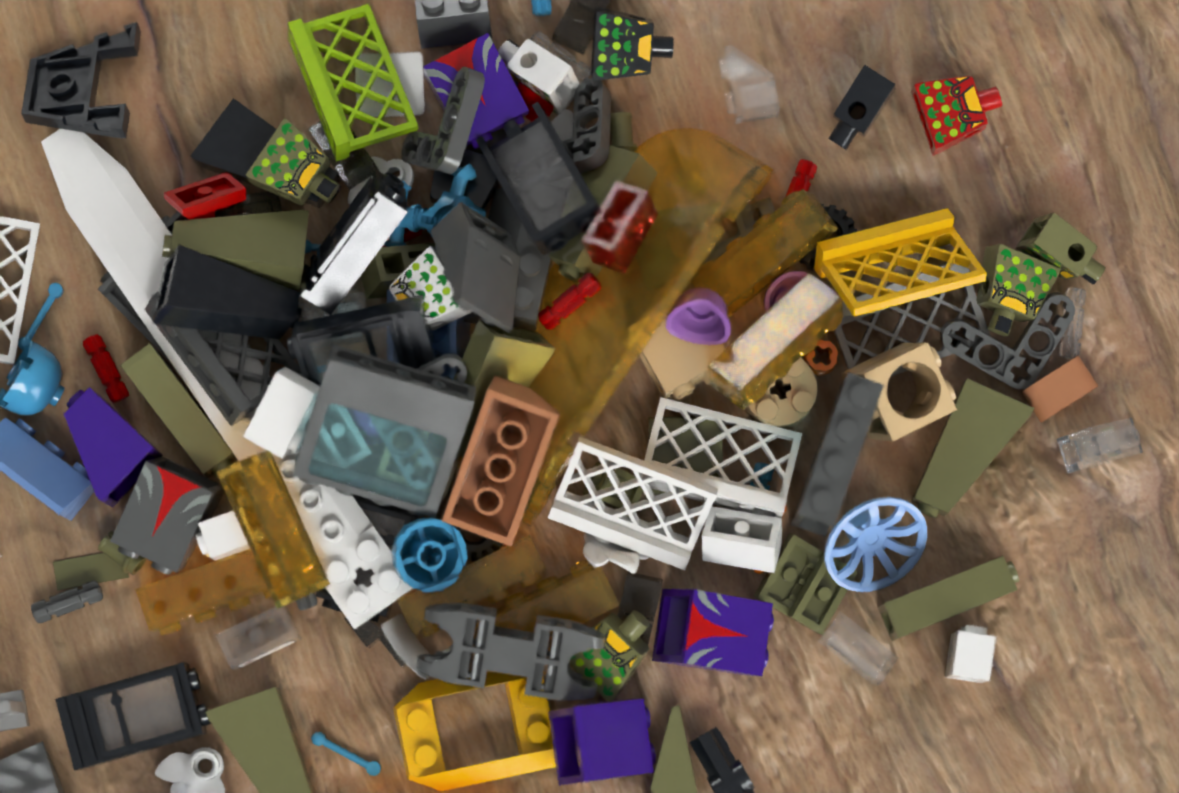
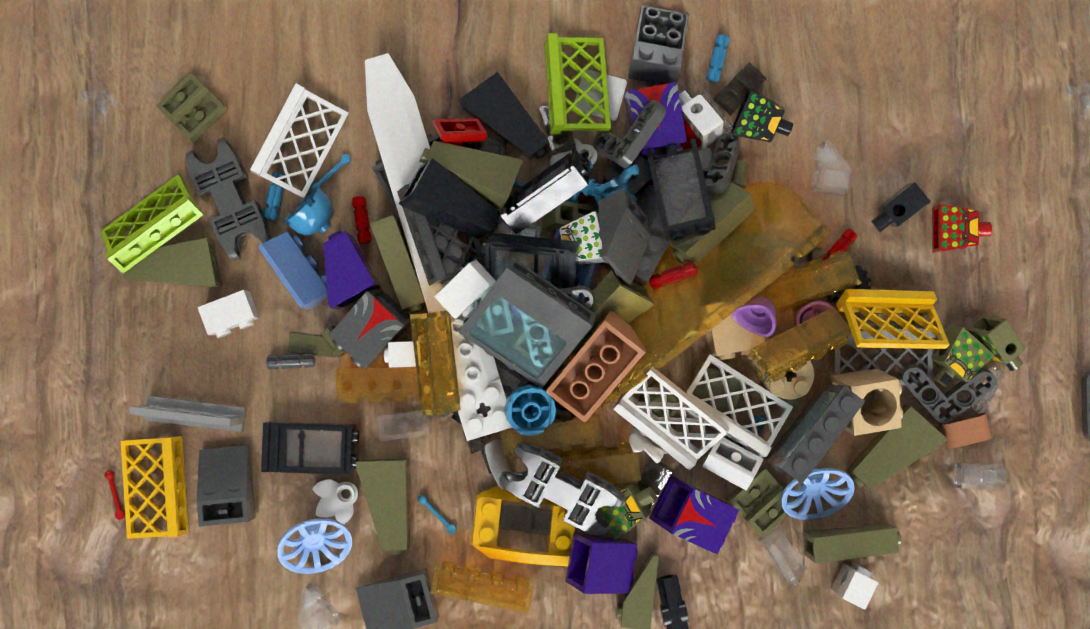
camera: 15 degrees right, 5 degrees up
(65, 86) = (392, 27): black wing -> none
(292, 167) = (521, 129): olive torso -> none
(474, 718) = (525, 519): none -> clear smoke slope
(620, 227) = (723, 238): clear red brick -> none
(820, 368) = (825, 366): orange bush -> none

